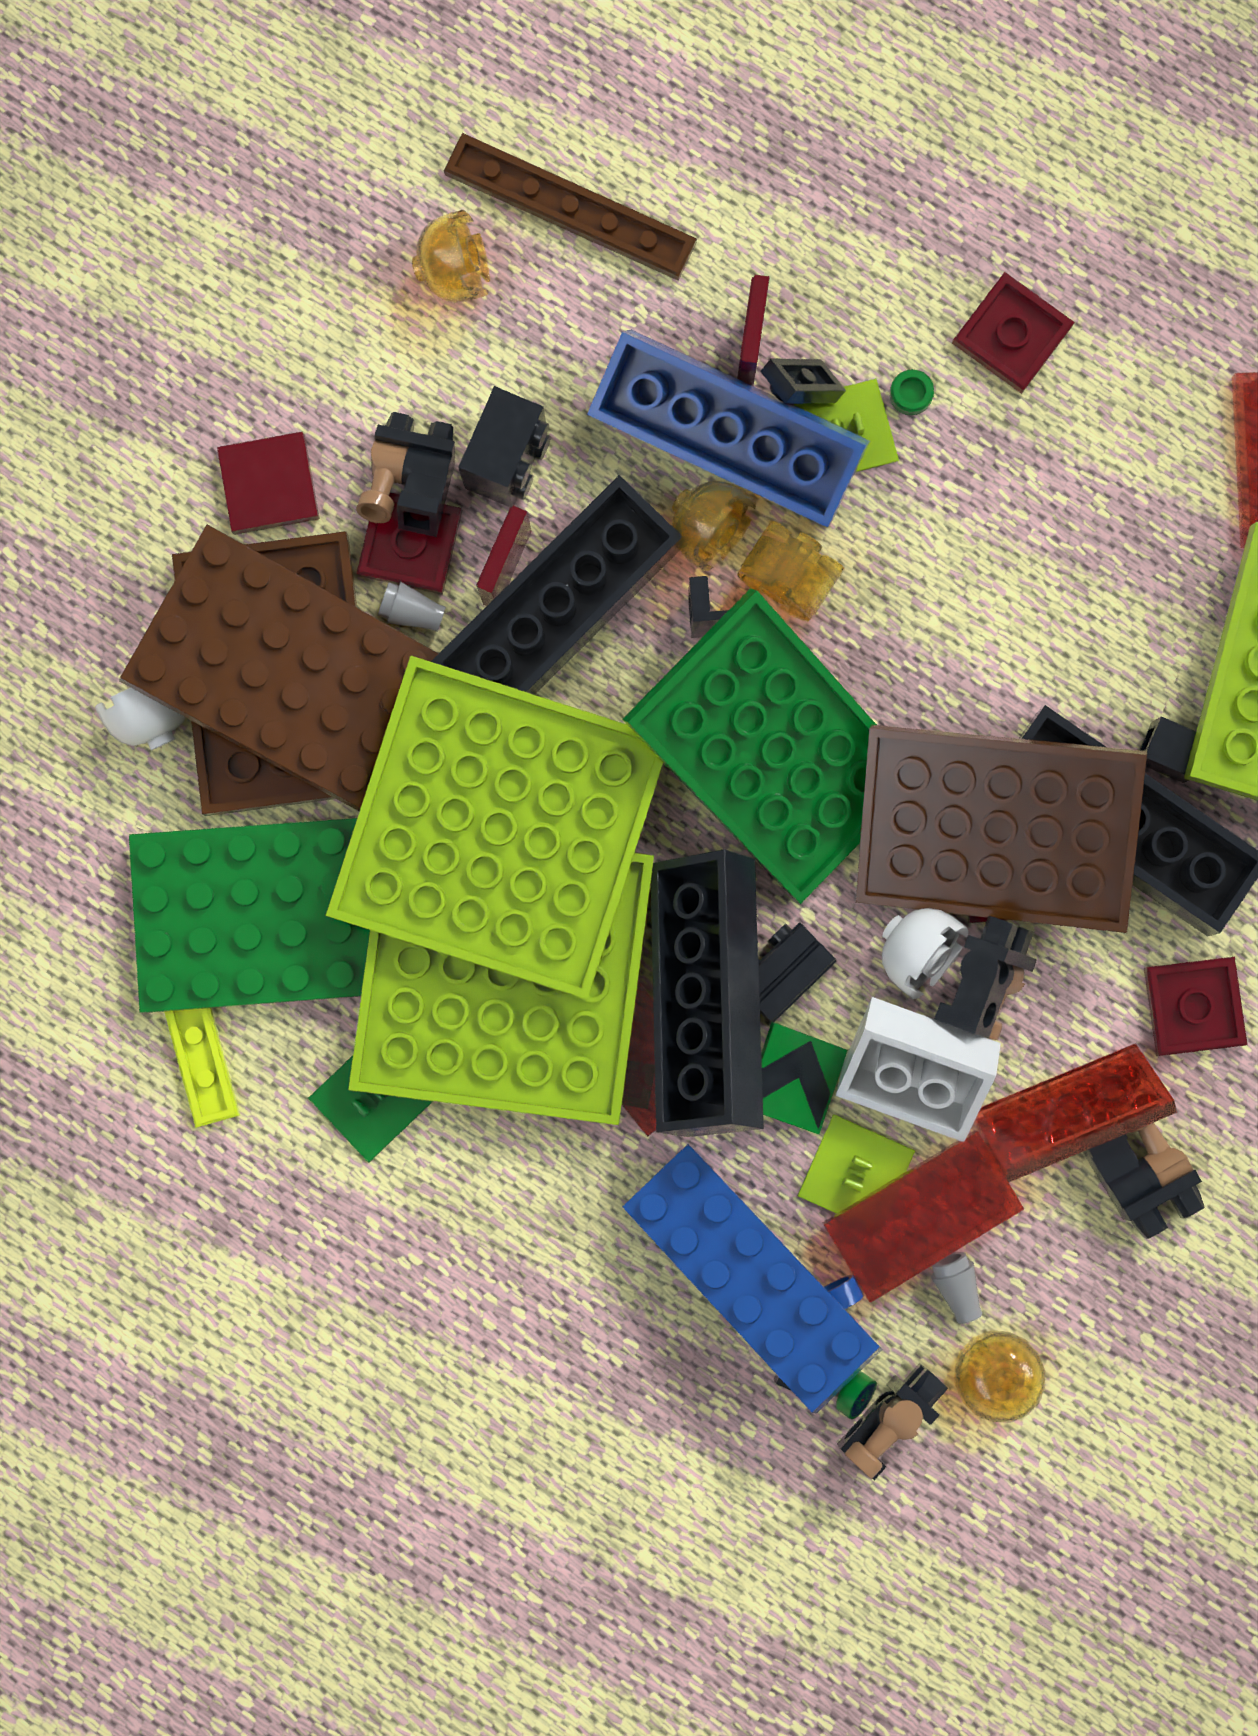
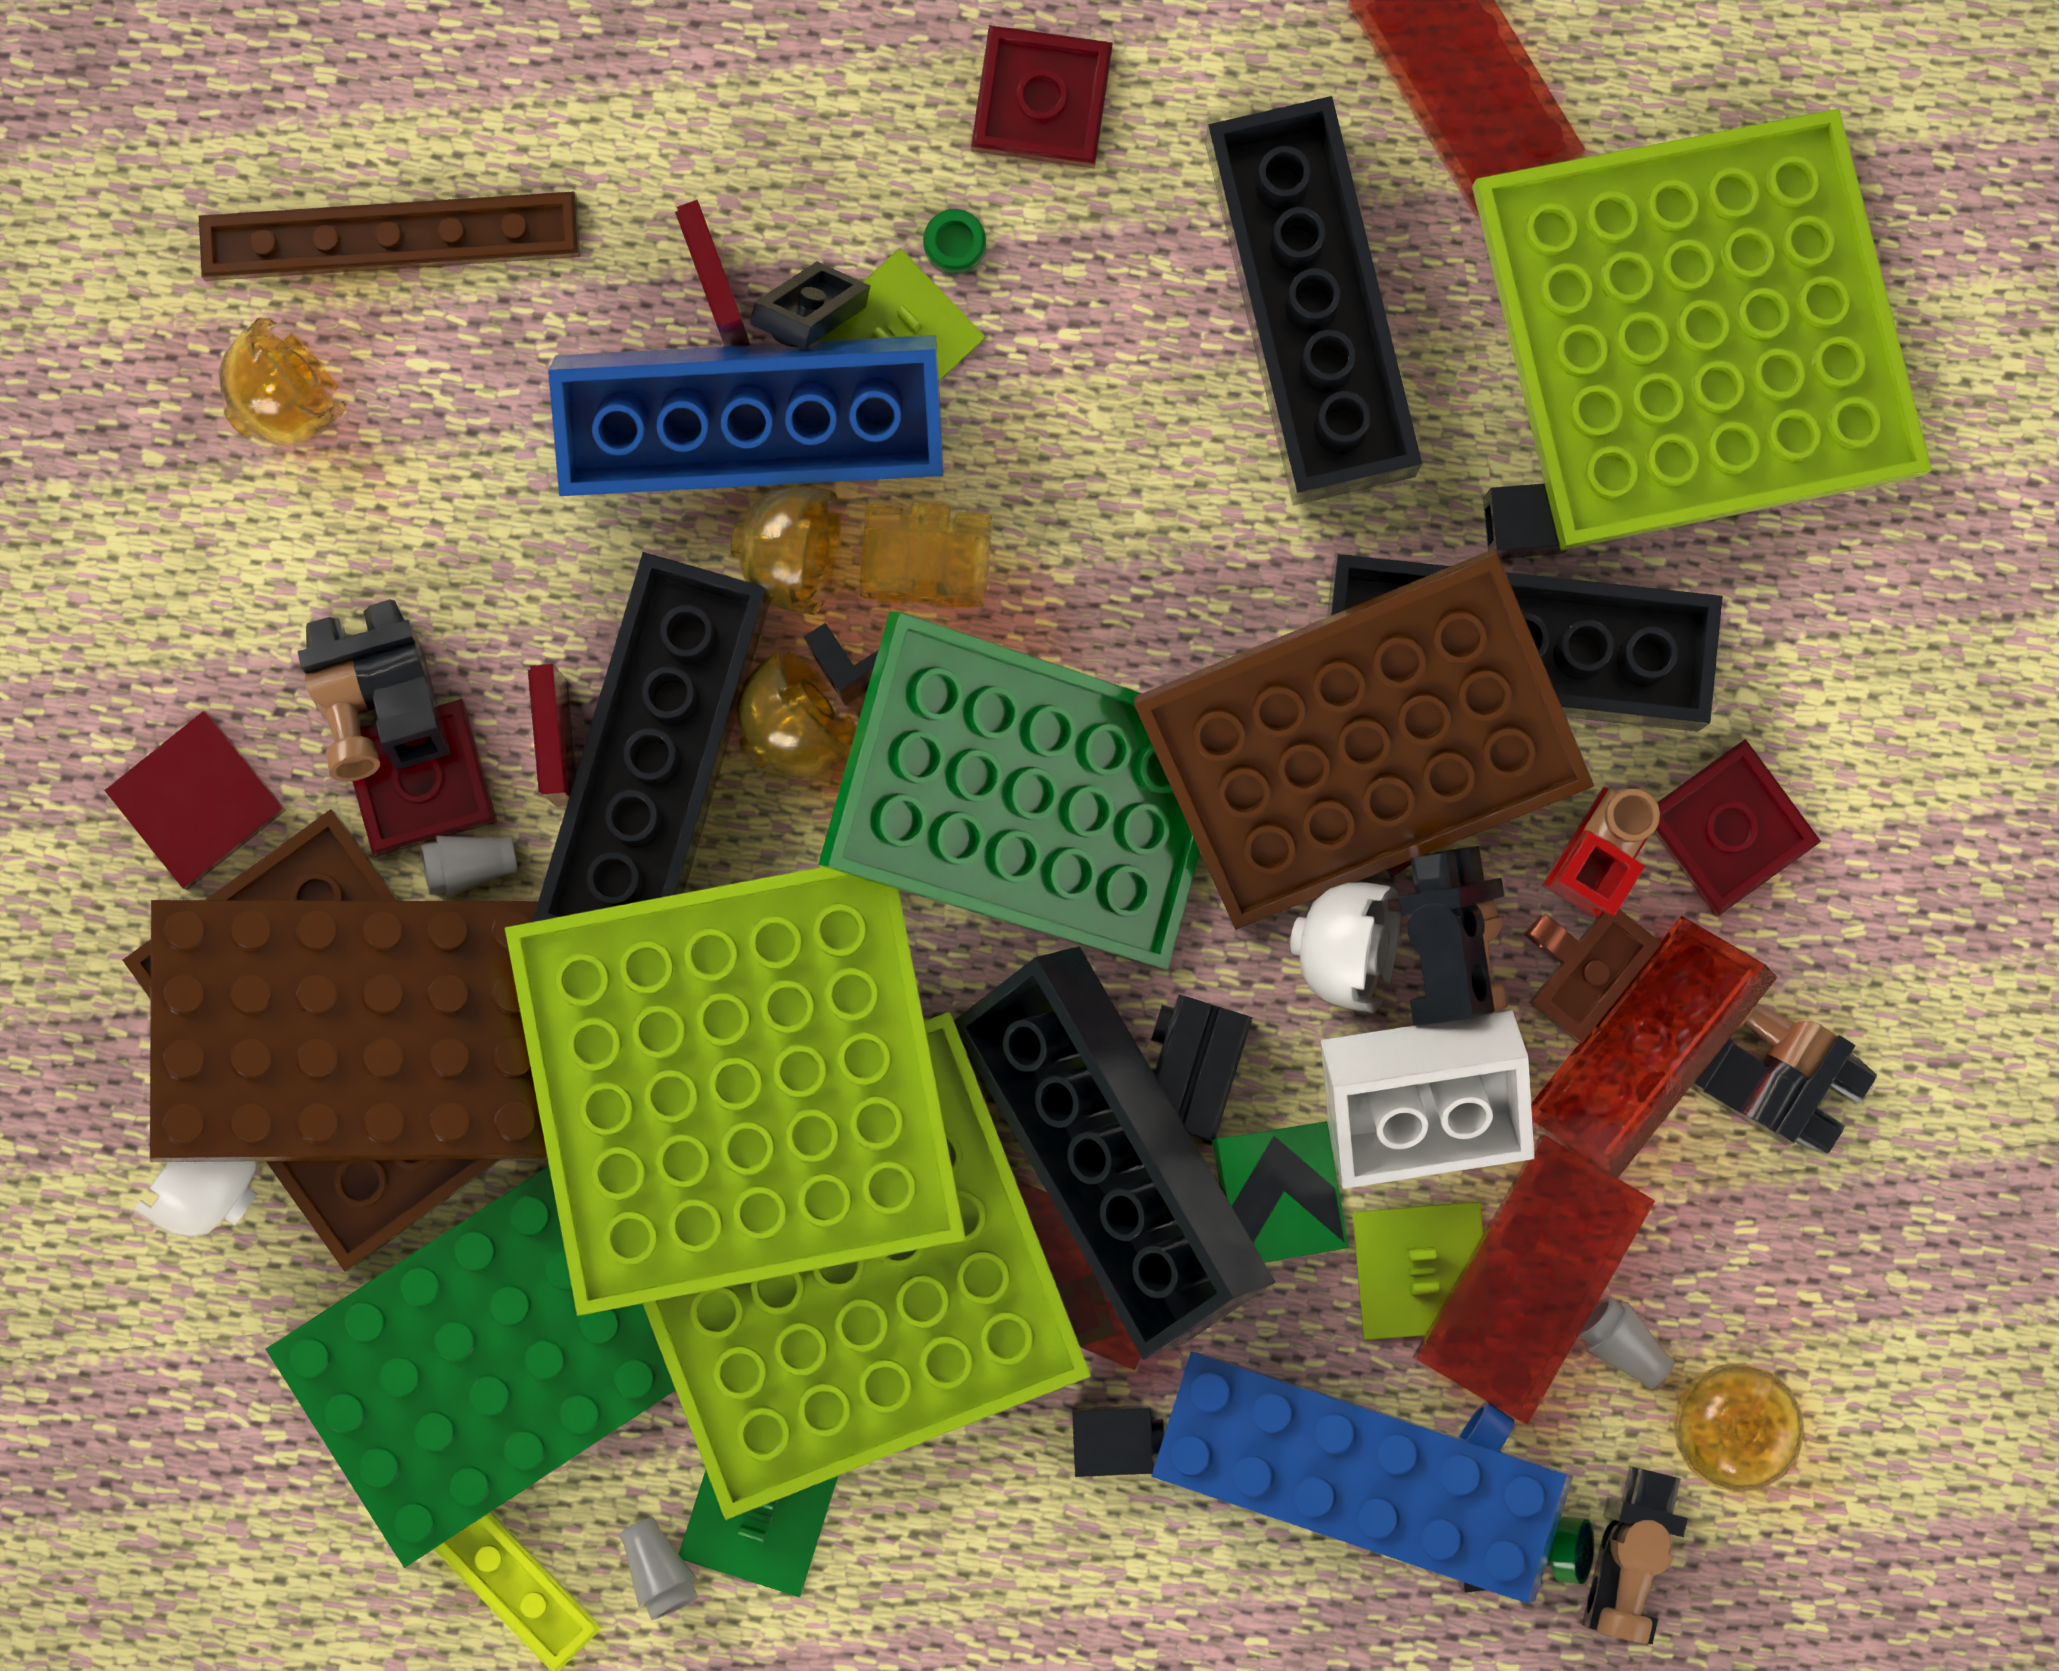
camera: 30 degrees left, 0 degrees up
(291, 1098) = (657, 1571): none -> light grey cone
(504, 448) = (477, 594): black piece -> none
(612, 1173) = (1115, 1440): none -> black brick
(653, 626) = (791, 720): none -> clear yellow cylinder
(1061, 1045) = (1590, 969): none -> copper plate
(1109, 977) = (1600, 857): none -> red hips
(1113, 543) = (1312, 300): none -> black brick

